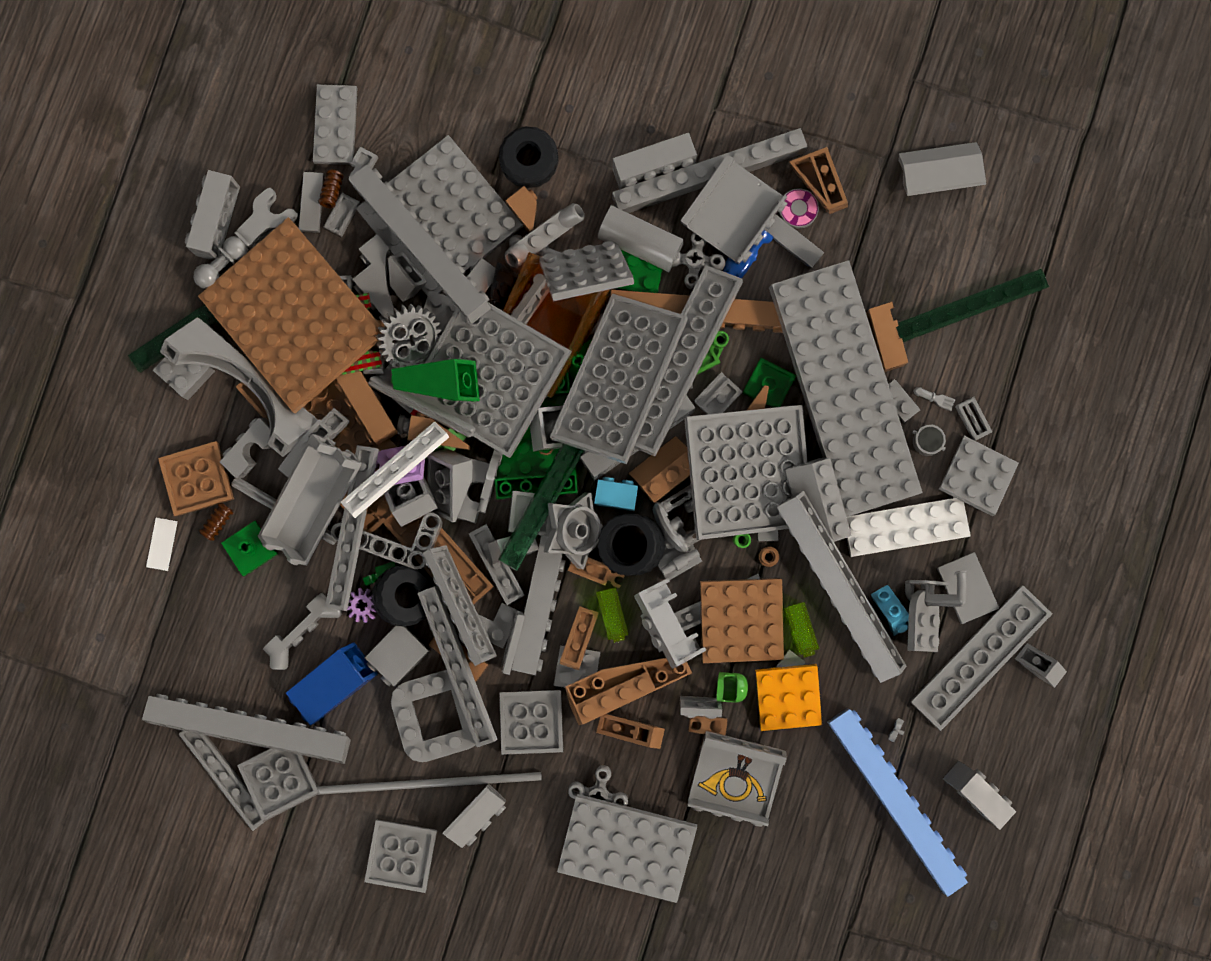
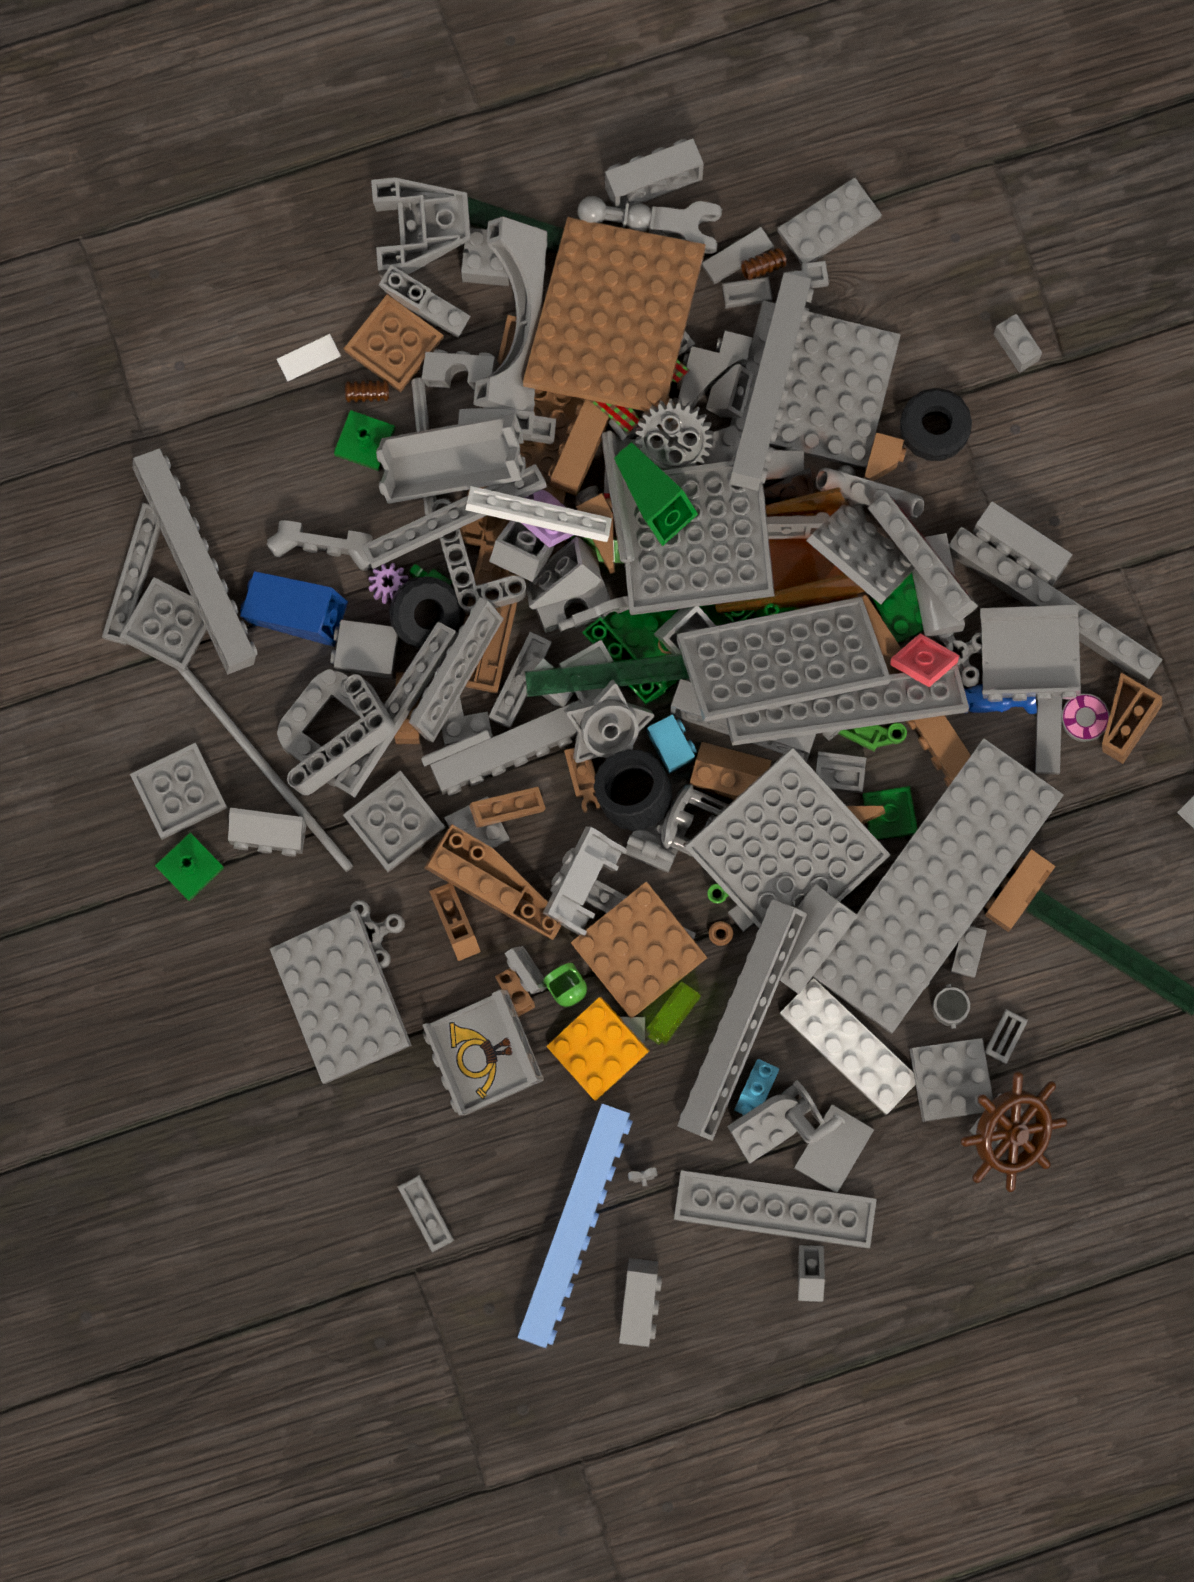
camera: 55 degrees right, 5 degrees down
(129, 391) = (430, 222): none -> light grey wedge
(182, 437) = (423, 302): none -> light grey slope
(455, 715) = (346, 741): none -> light grey beam
(459, 886) = (189, 867): none -> green tile
(513, 62) = (1017, 343): none -> light grey brick
(612, 614) = (553, 823): clear neon green brick -> none
(617, 232) = (923, 557): none -> light grey brick
(686, 284) = (924, 660): none -> coral tile
(815, 895) = (425, 1213): none -> light grey tile
(942, 401) = (1000, 992): light grey piece -> none
(1043, 463) = (1007, 1126): none -> reddish brown brick

